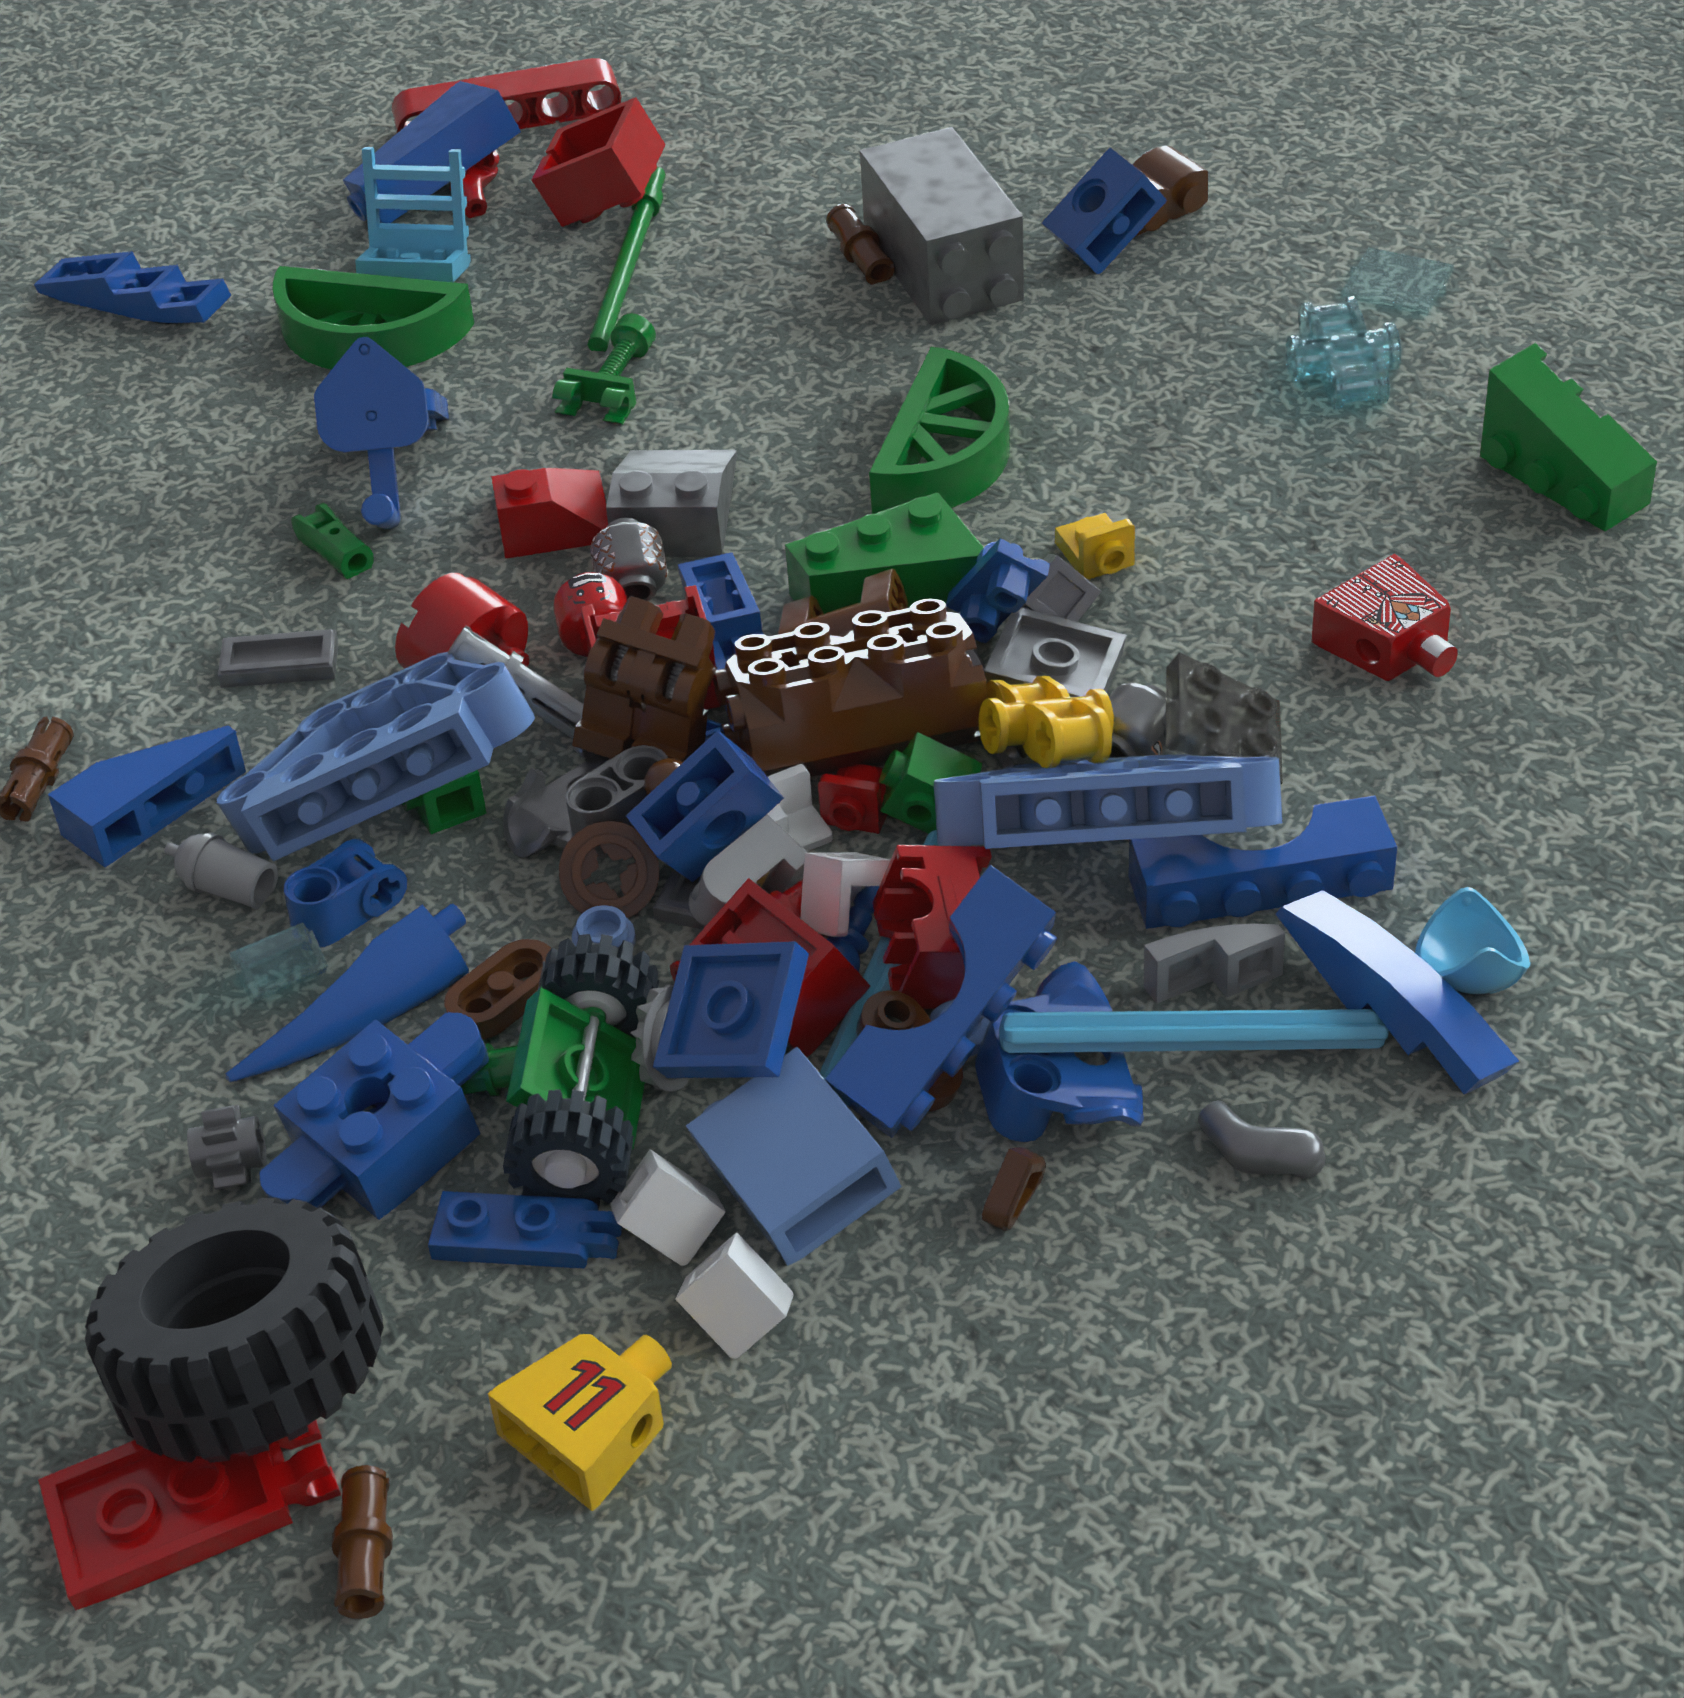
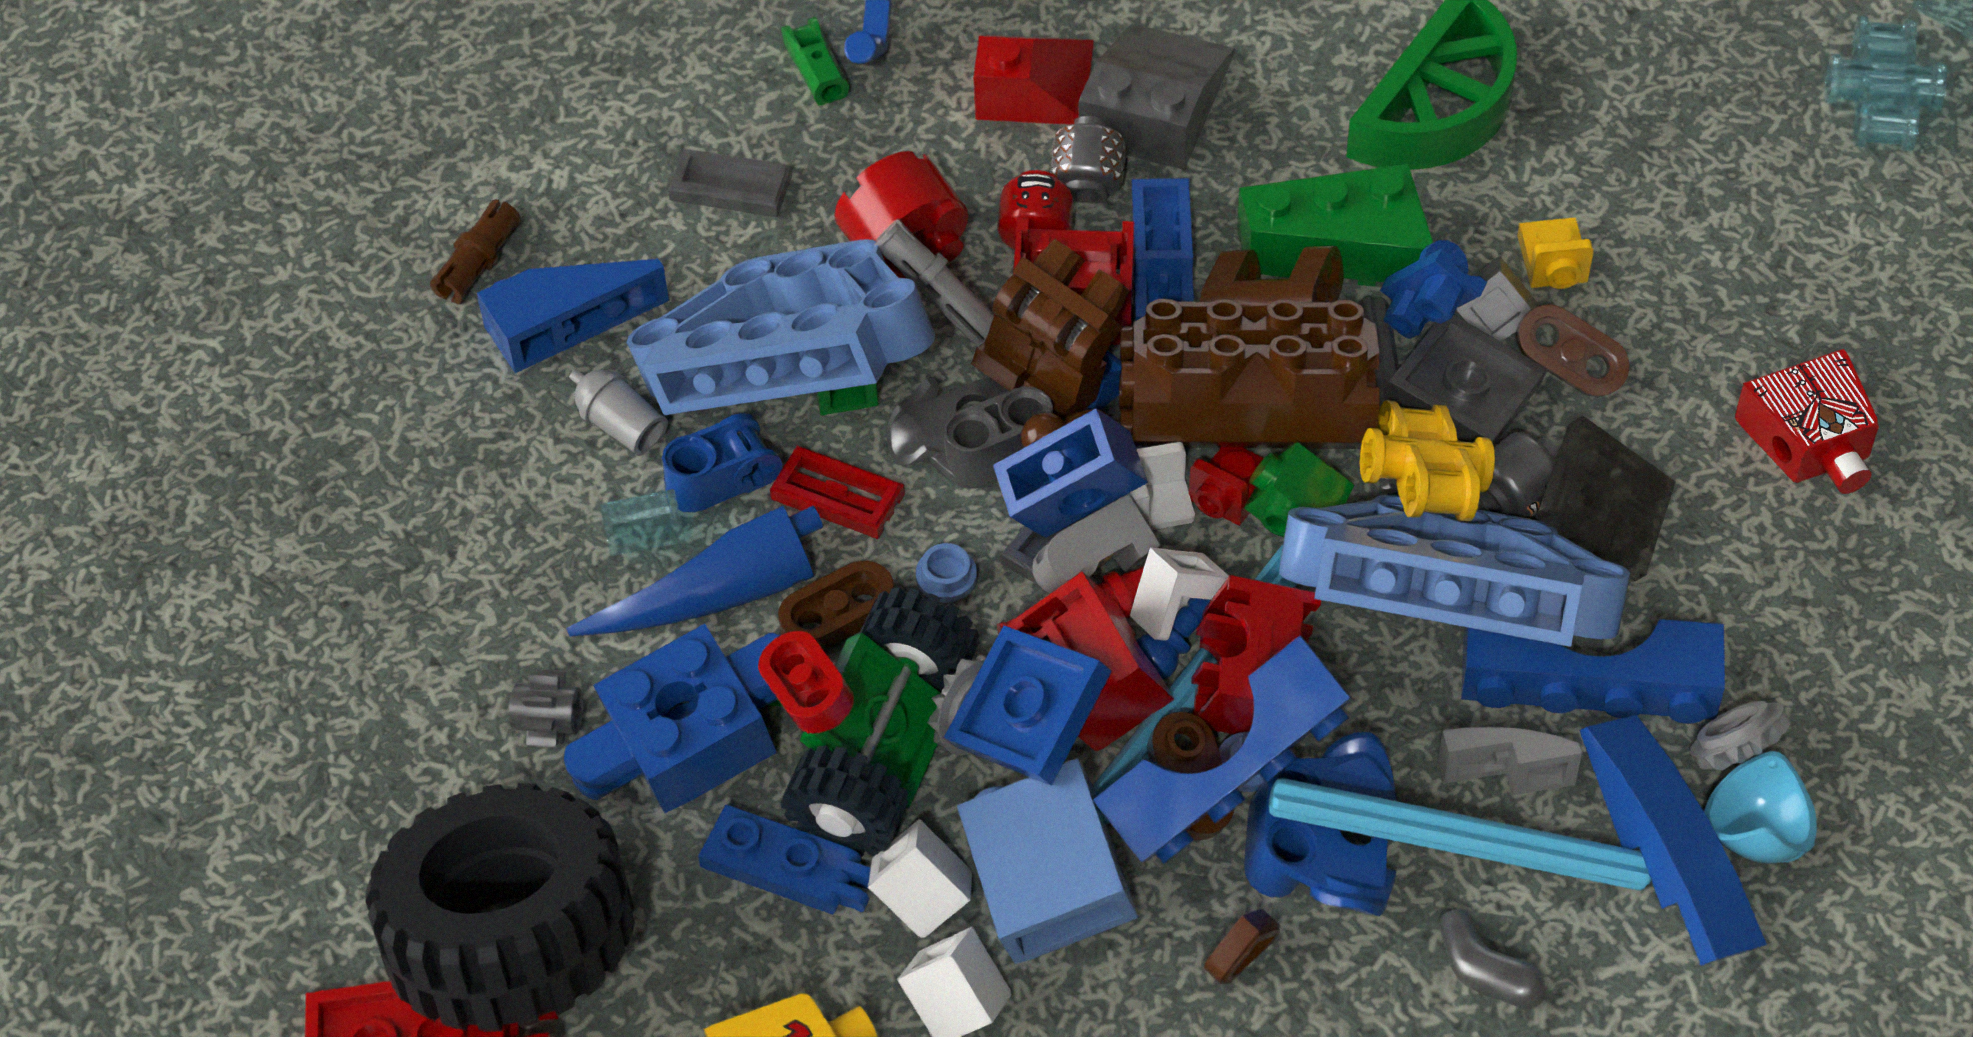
camera: 15 degrees right, 10 degrees up
(474, 903) = (832, 498): none -> red tile
(500, 1039) = (806, 682): none -> red plate
(619, 842) = (944, 492): reddish brown gear -> none
(1144, 609) = (1572, 349): none -> reddish brown plate
(1424, 886) = (1739, 734): none -> light grey gear

